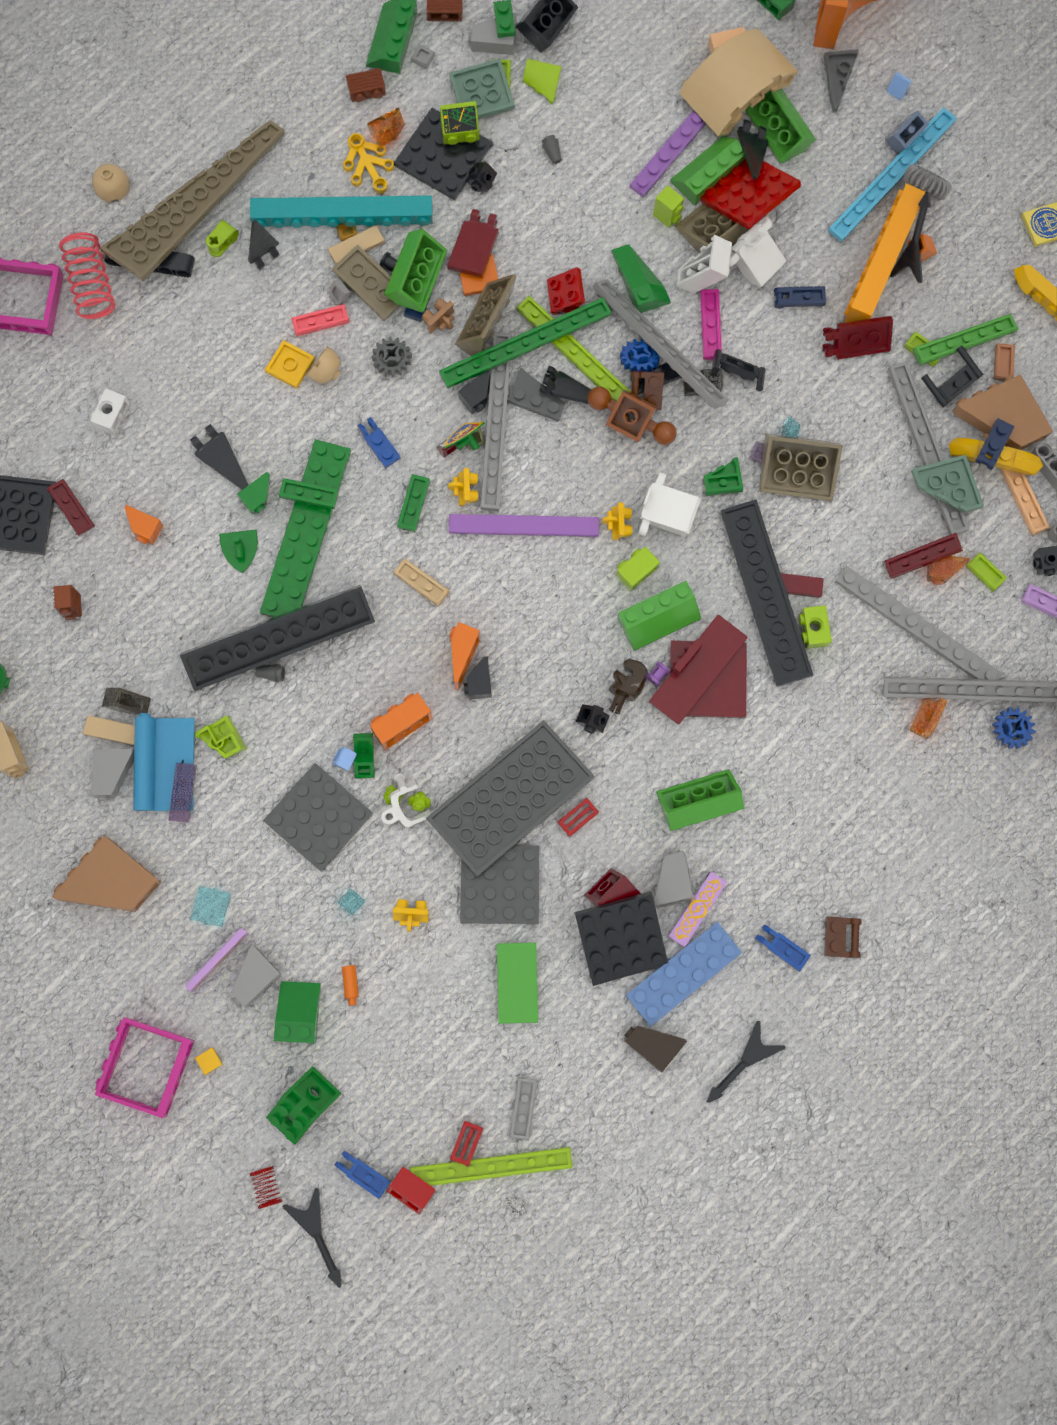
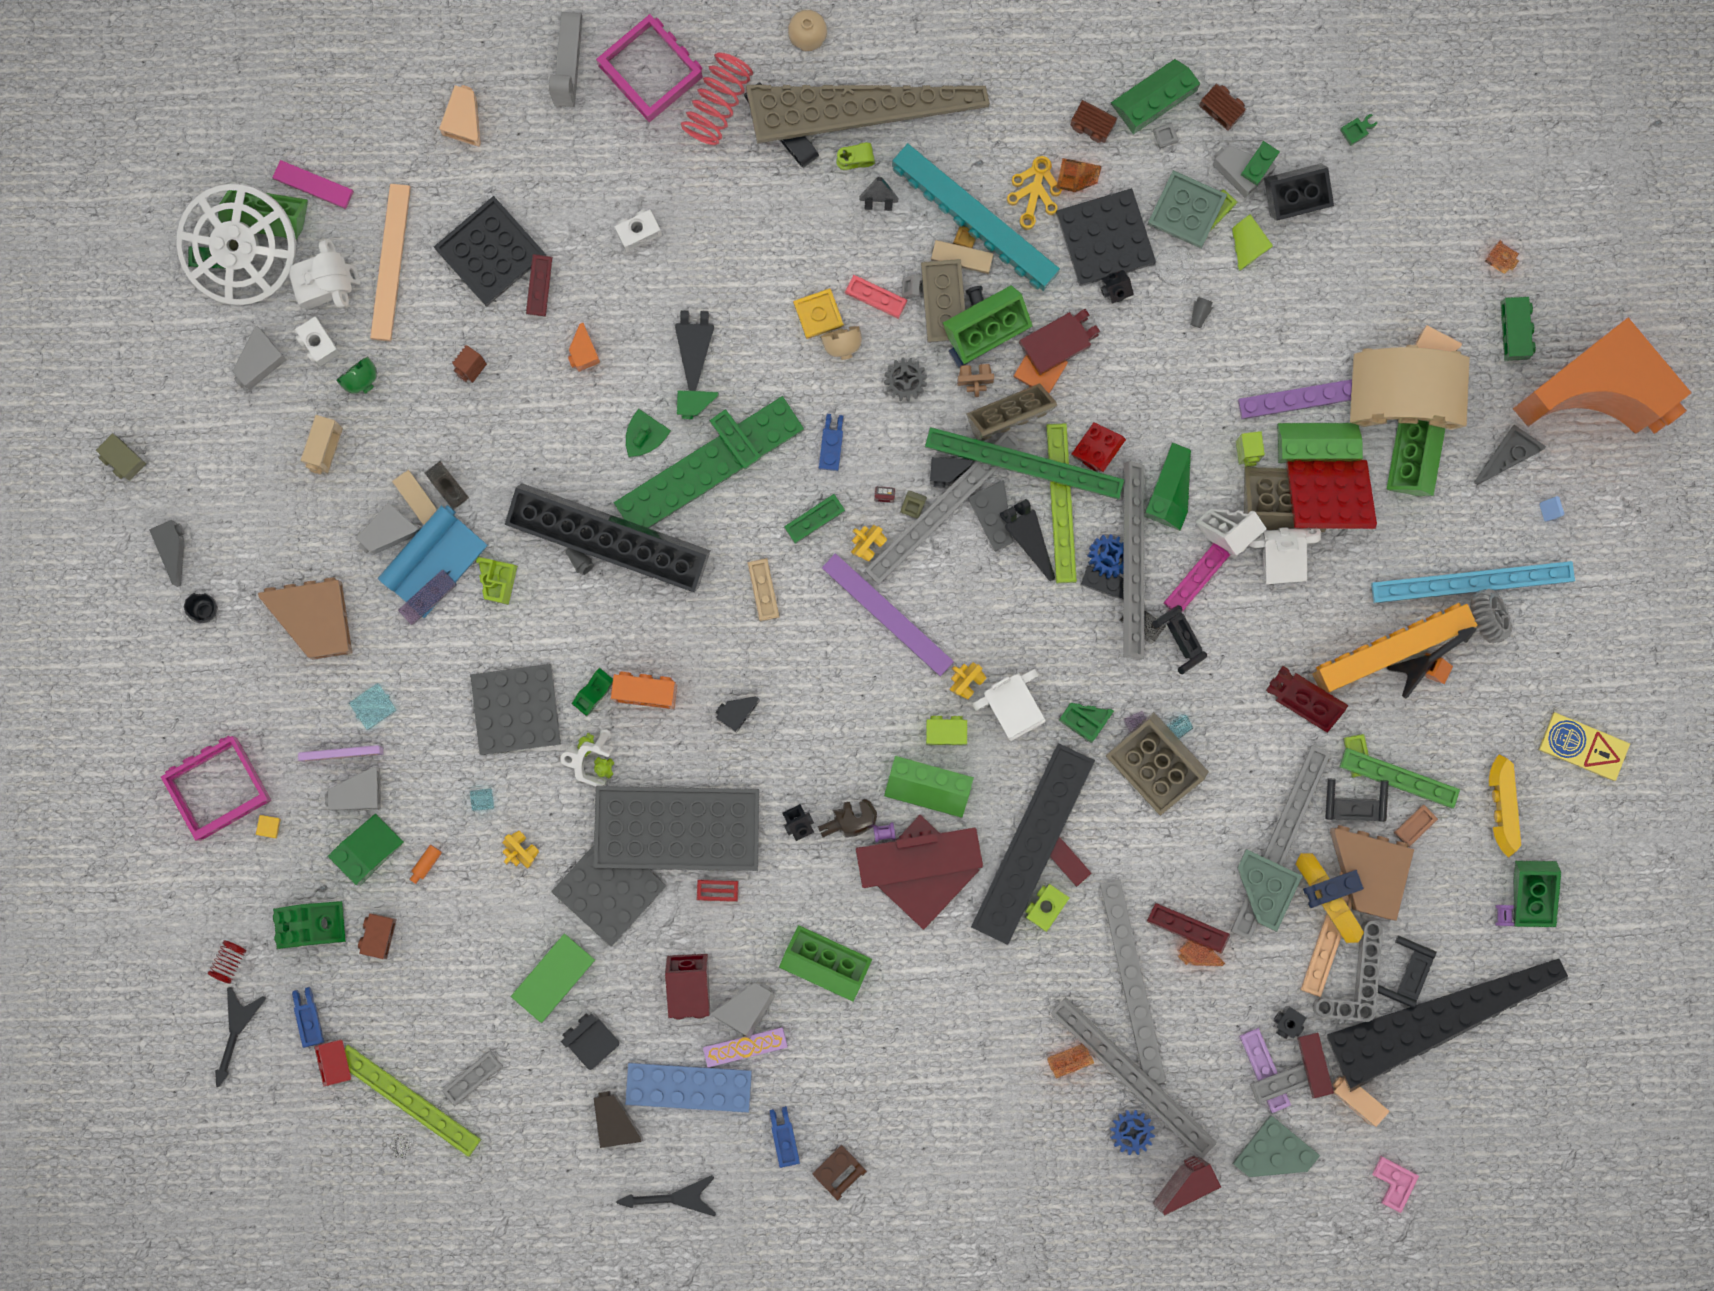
camera: 45 degrees right, 5 degrees up
(17, 945) = (200, 608): none -> black hair
(344, 758) = (575, 680): light blue slope -> none
(361, 1067) = (377, 936): none -> copper brick
(459, 122) = (1137, 226): slope -> none
(460, 1160) = (421, 1058): red tile -> none
(464, 436) = (903, 498): shield -> none
(464, 644) = (743, 676): orange slope -> none
(585, 1003) = (590, 1040): none -> black bracket
(619, 420) = (1067, 601): dark orange brick -> none
(621, 938) = (662, 1016): black plate -> none
(652, 386) = (1093, 594): reddish brown plate -> none
(753, 146) = (1370, 458): black flag -> none
(800, 296) = (1293, 620): dark blue plate -> none
(907, 132) = (1518, 556): sand blue brick -> none
(986, 572) = (1232, 986): lime tile -> none

